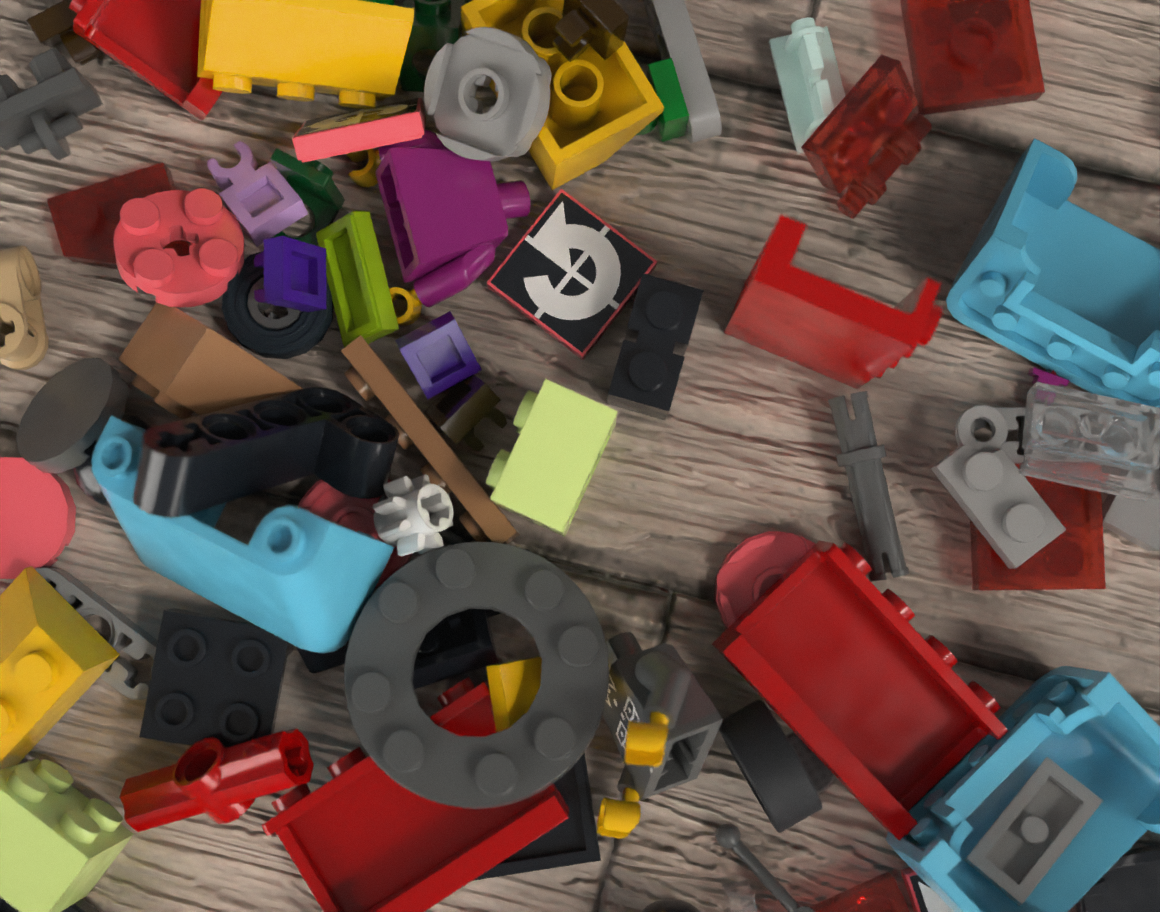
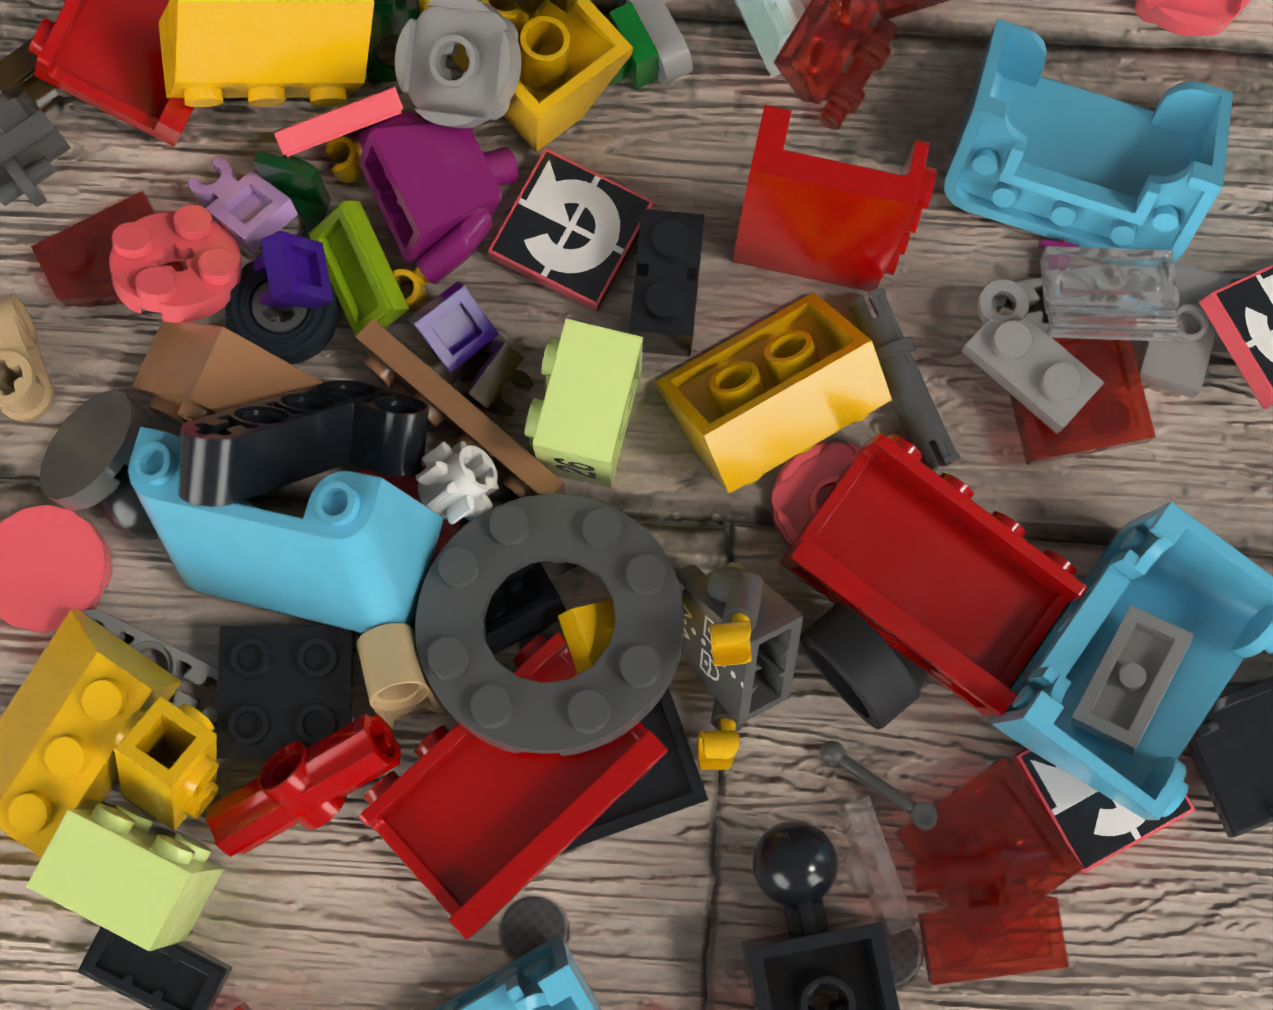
camera: 15 degrees left, 5 degrees down
(91, 736) = (168, 761): none -> yellow brick
(317, 689) = (394, 673): none -> tan piece
(740, 473) = (775, 390): none -> yellow slope

